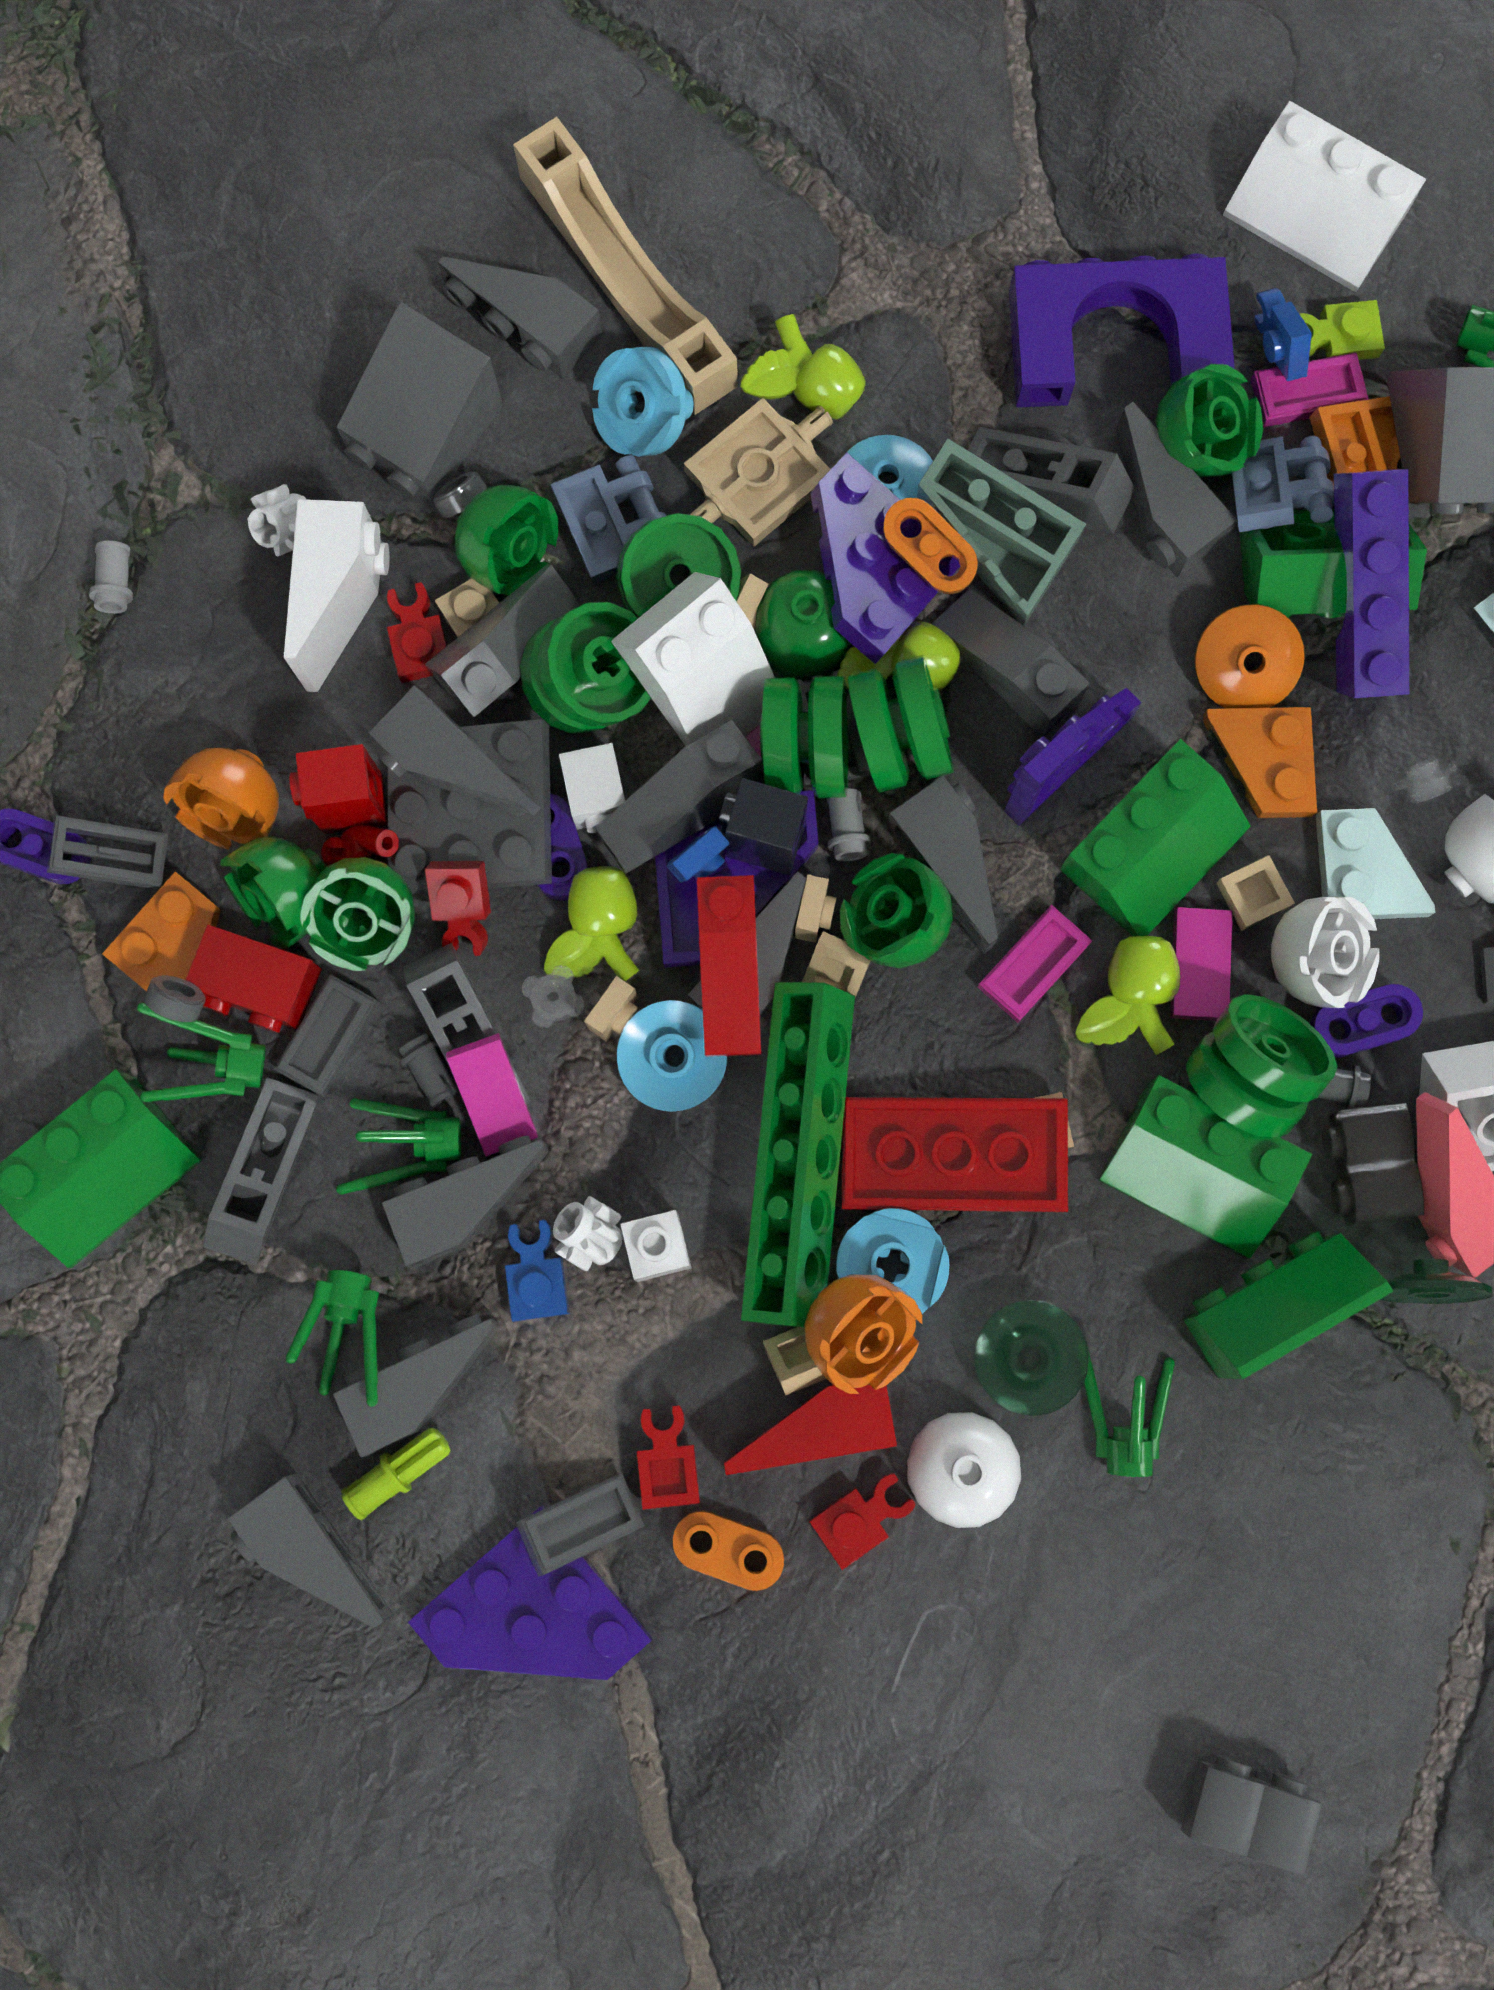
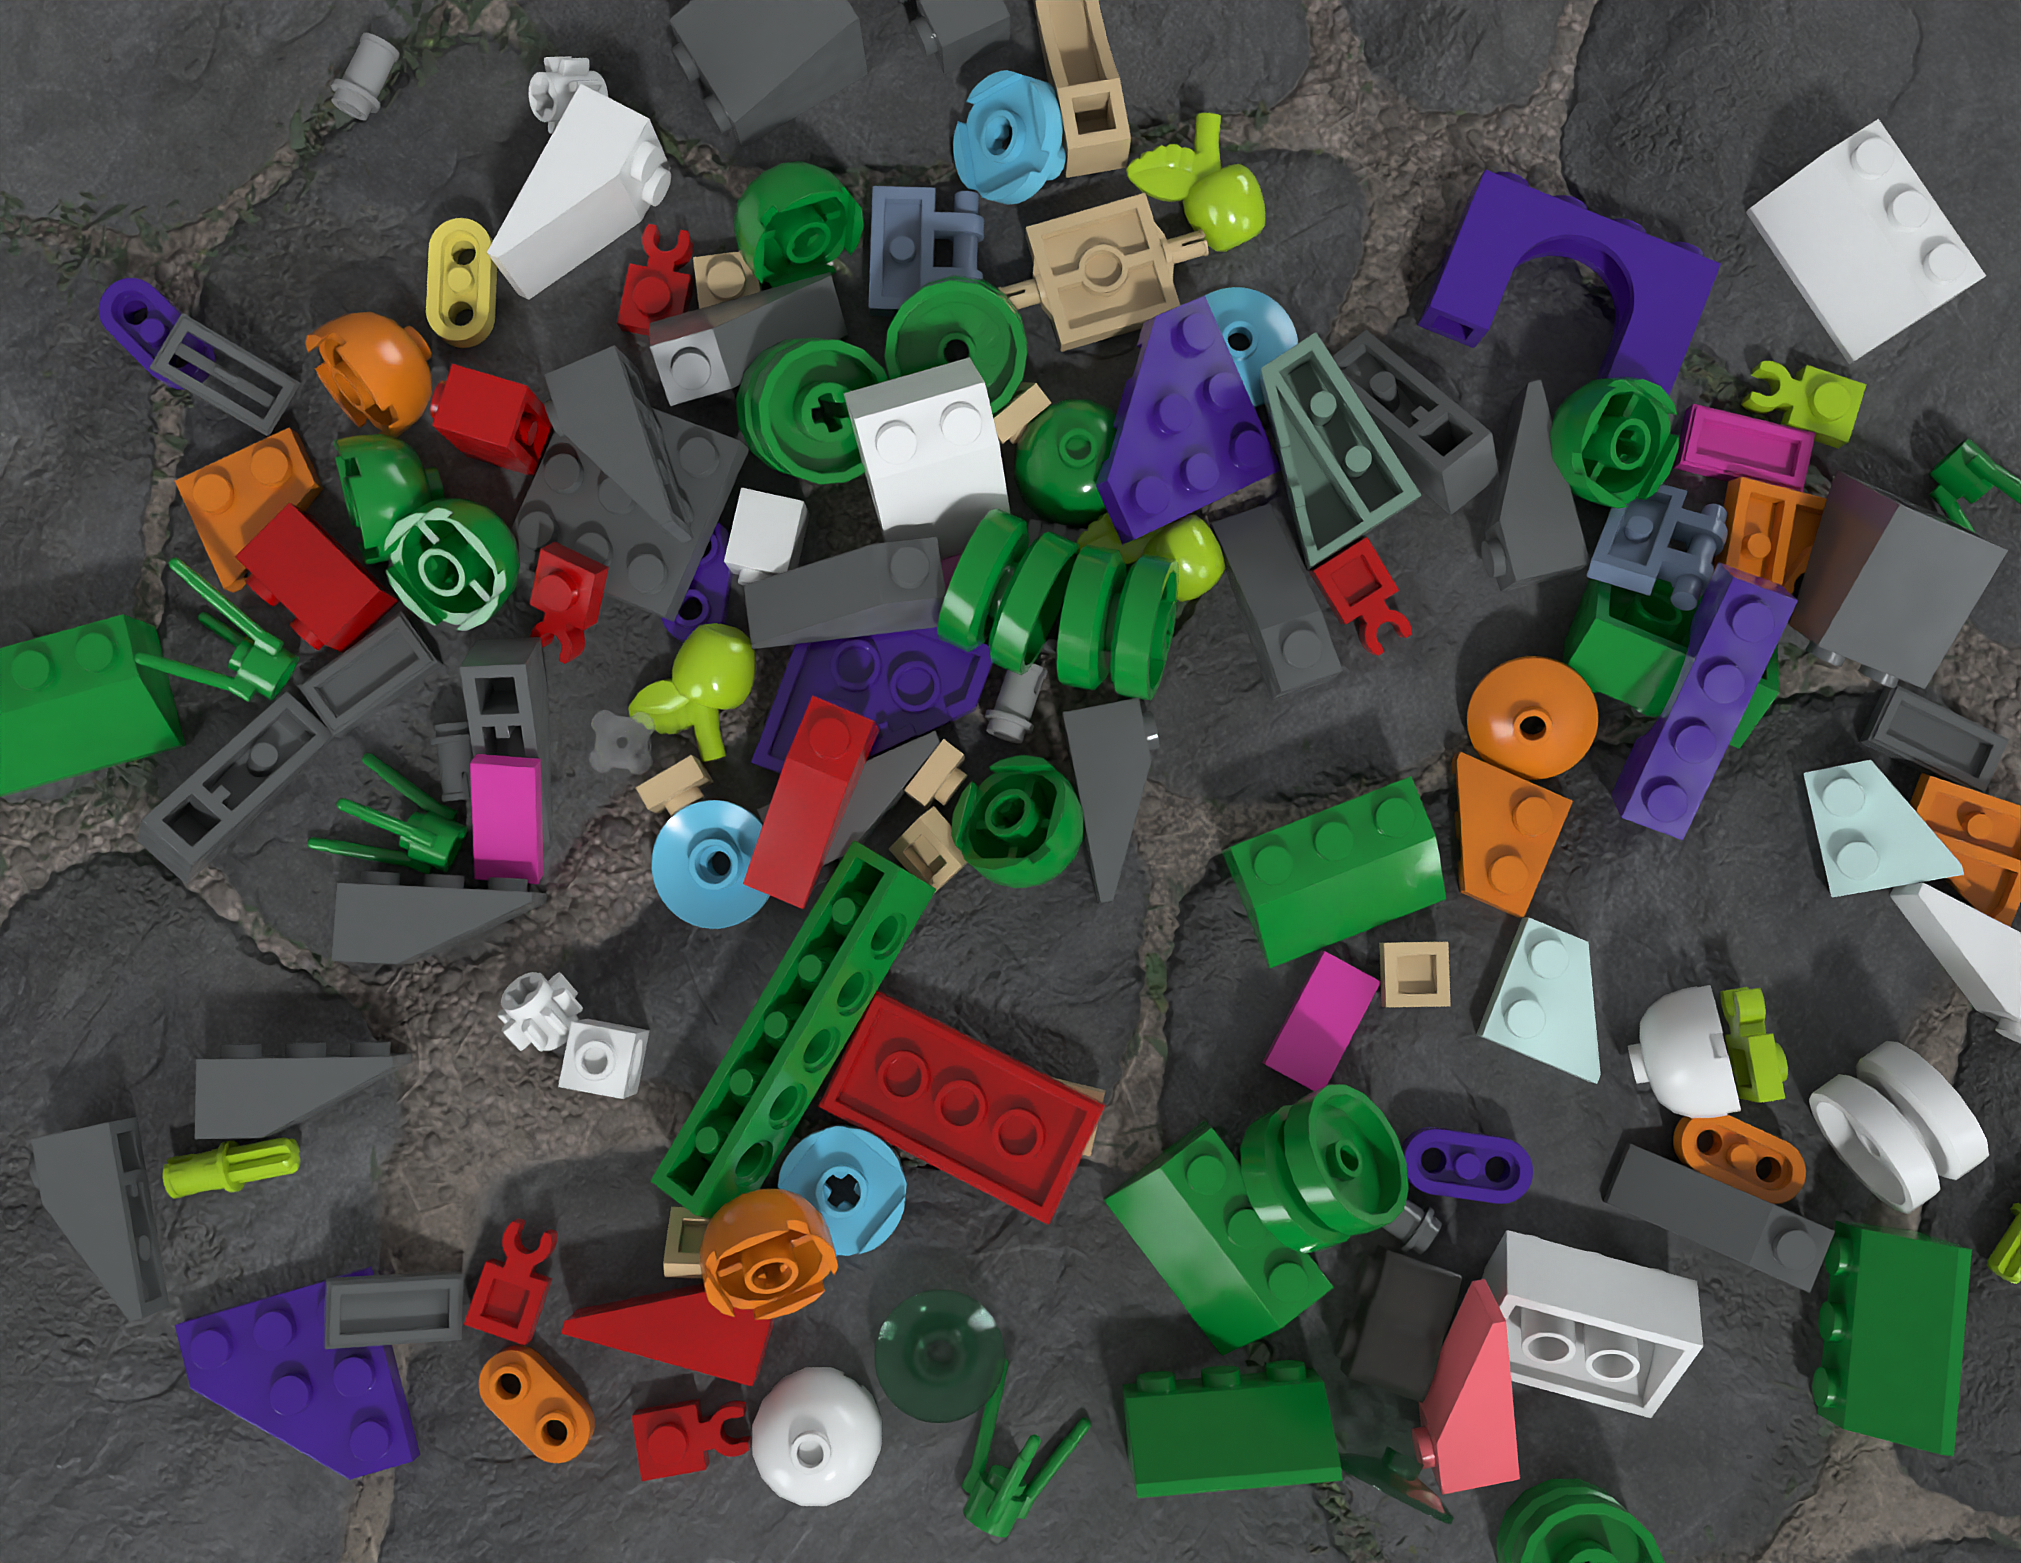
camera: 20 degrees right, 5 degrees up
(174, 998) = (214, 568): dark grey tile -> none
(261, 703) = (458, 286): none -> light yellow plate
(344, 1298) = (256, 963): green plant -> none
(360, 842) = (491, 487): red arm -> none
(458, 493) = (770, 150): dark grey tile -> none
(536, 1283) = (467, 1035): blue plate -> none
(700, 857) = (829, 672): blue plate -> none
(763, 825) = (915, 668): black brick -> none
(933, 544) = (1242, 442): orange plate -> none
(1034, 963) = (1145, 940): dark pink tile -> none
(1052, 763) = (1296, 727): dark purple plate -> none
(1067, 620) = (1355, 587): none -> red plate
(1139, 977) = (1246, 1011): lime piece -> none
(1285, 334) = (1745, 379): blue plate -> none
(1325, 951) = (1456, 1076): white cylinder -> none
(1427, 780) = (1658, 938): clear plate -> none

